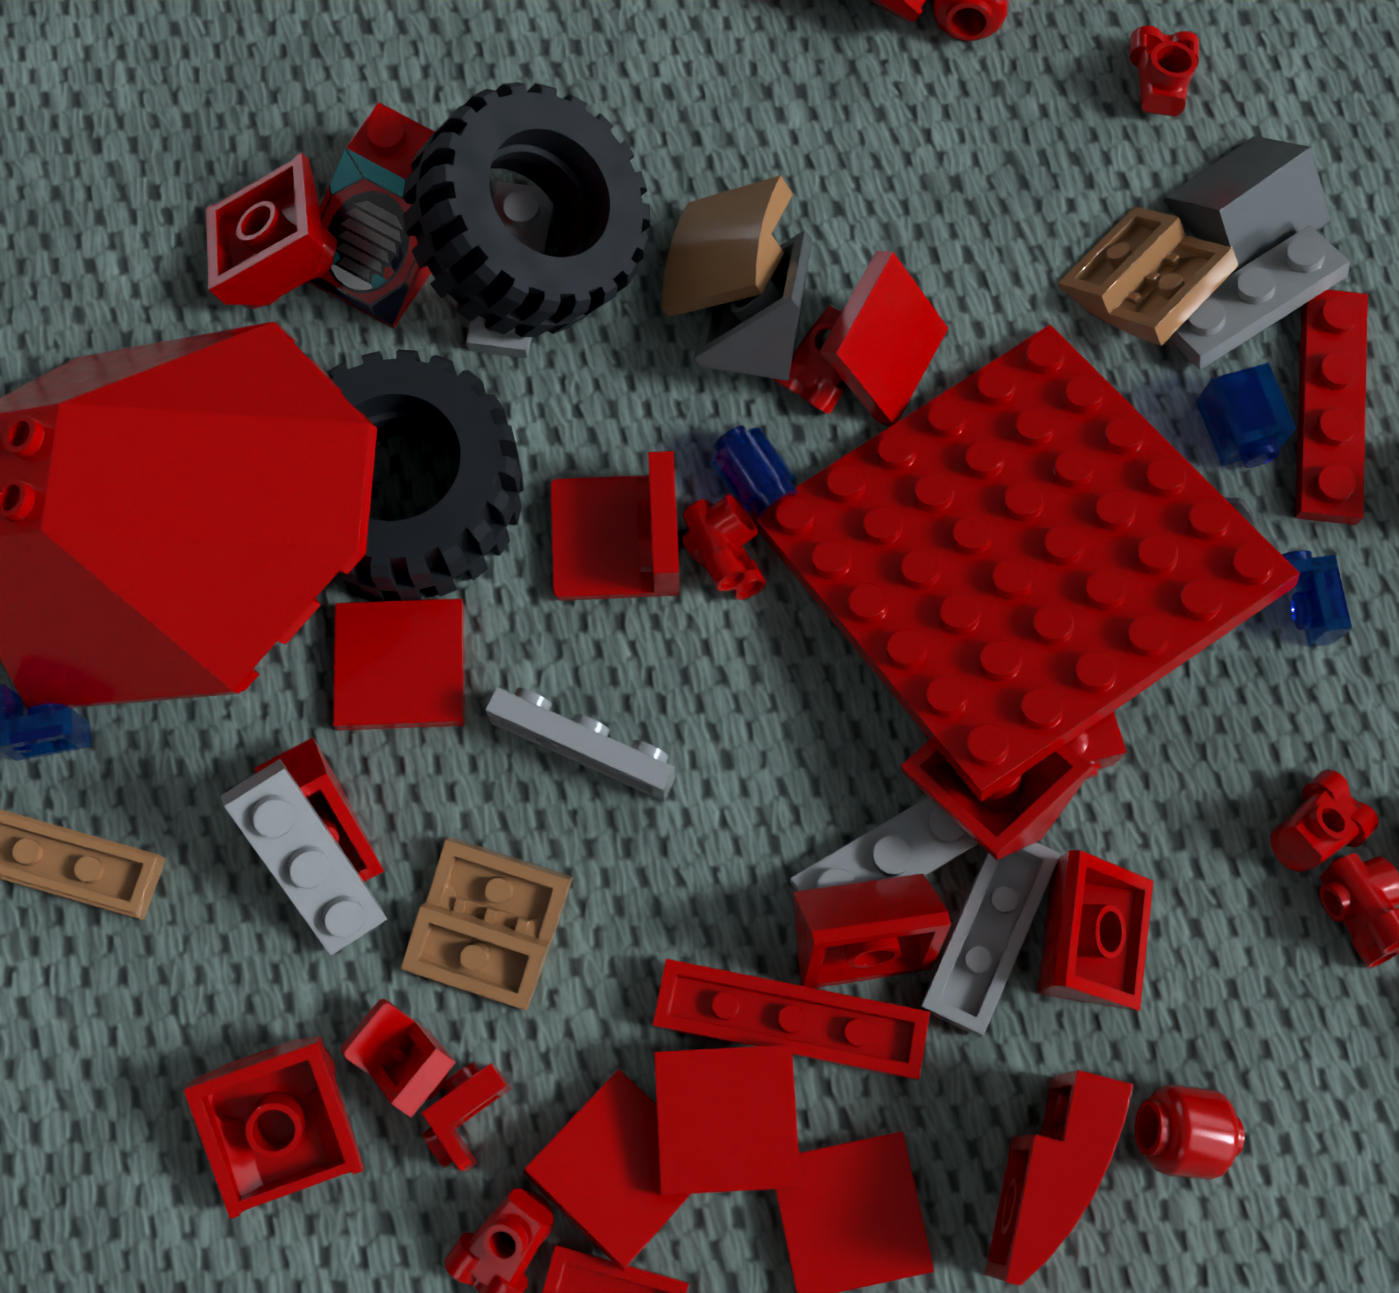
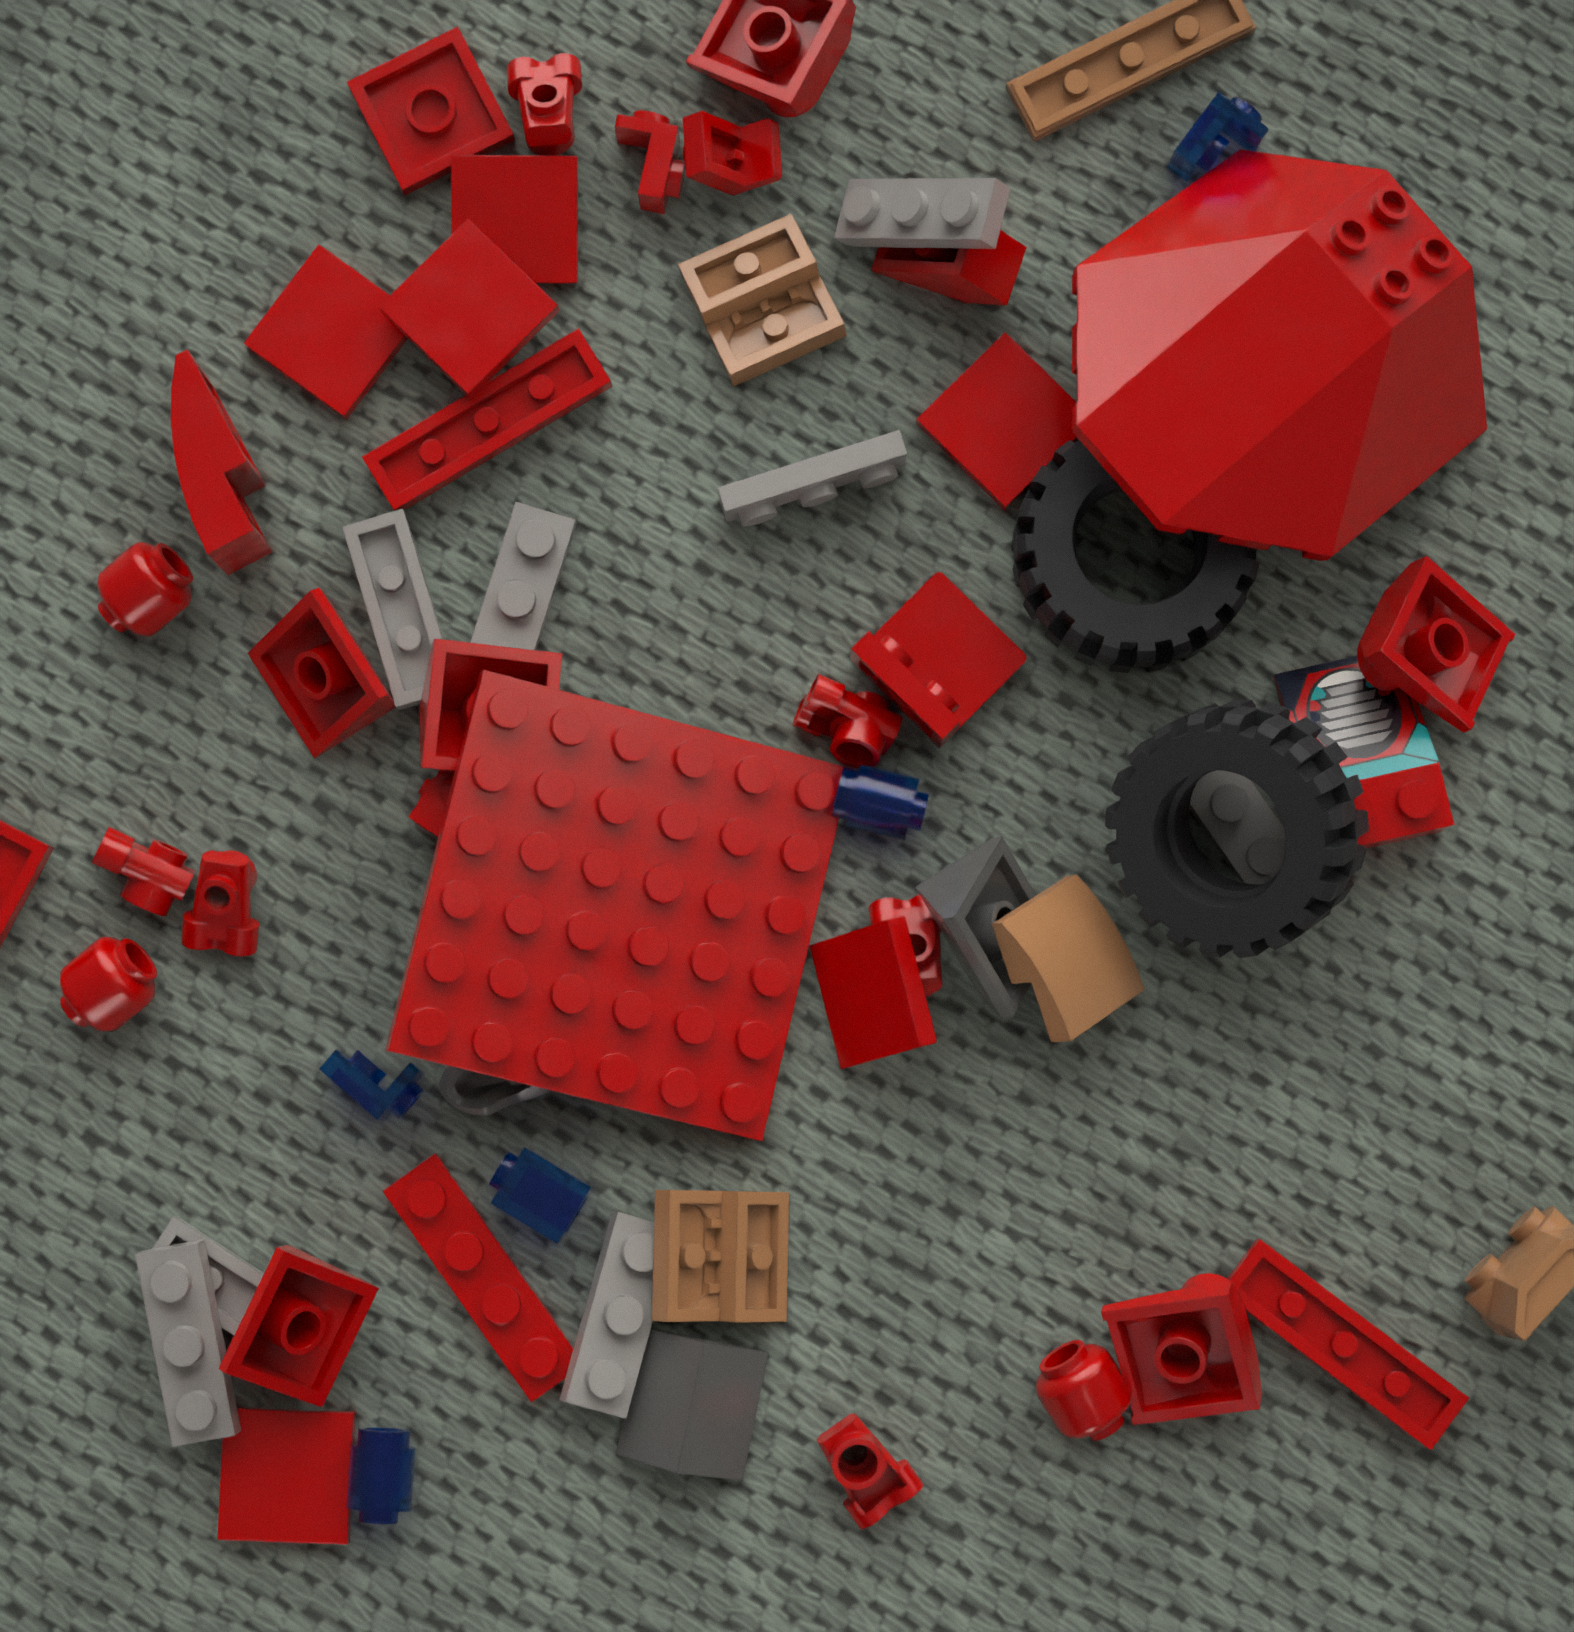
camera: 140 degrees right, 10 degrees up
(868, 930) = (491, 525): red slope -> none

